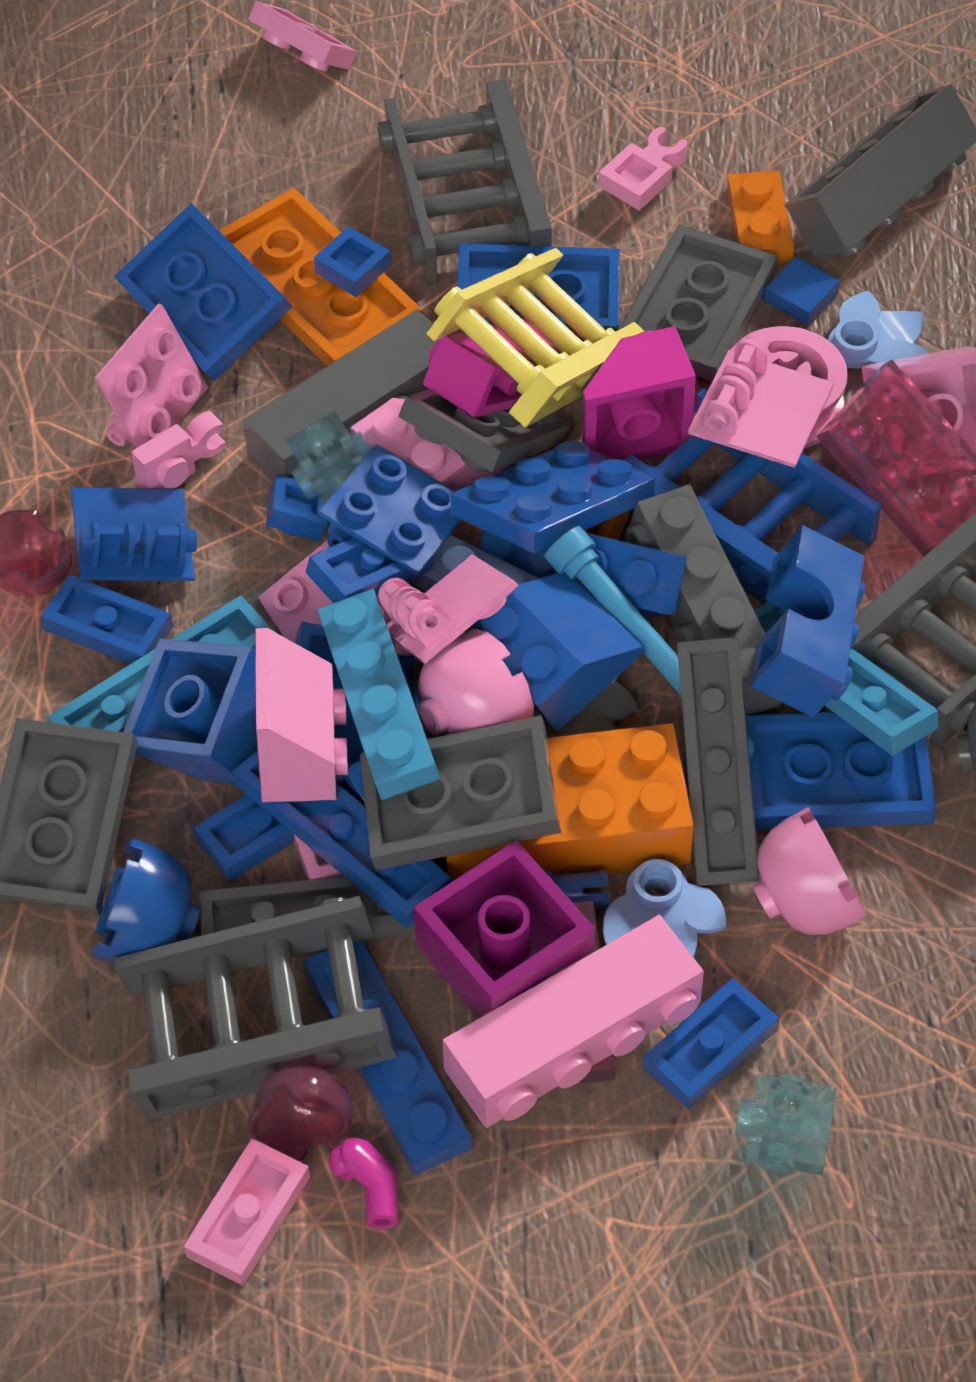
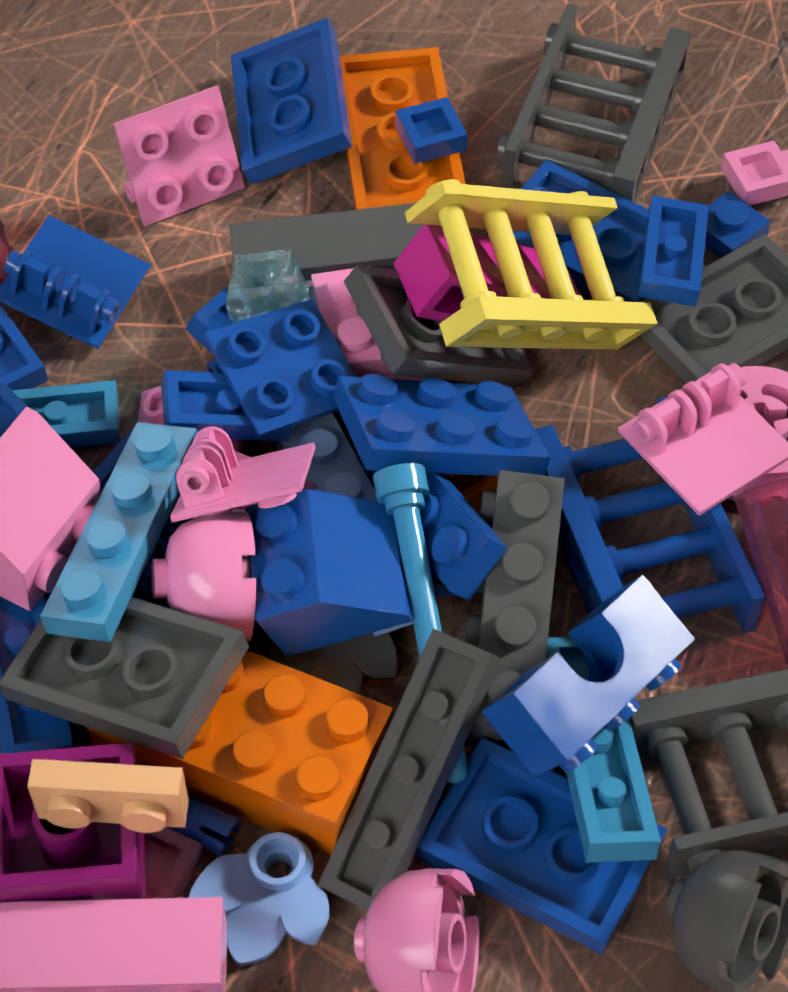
camera: 30 degrees right, 0 degrees up
(171, 455) = (155, 230): bright pink plate -> none
(540, 876) = (88, 792): none -> light nougat plate
(624, 270) = (673, 251): none -> blue plate
(640, 232) = (732, 224): none -> blue plate
(640, 397) = (591, 373): dark pink slope -> none

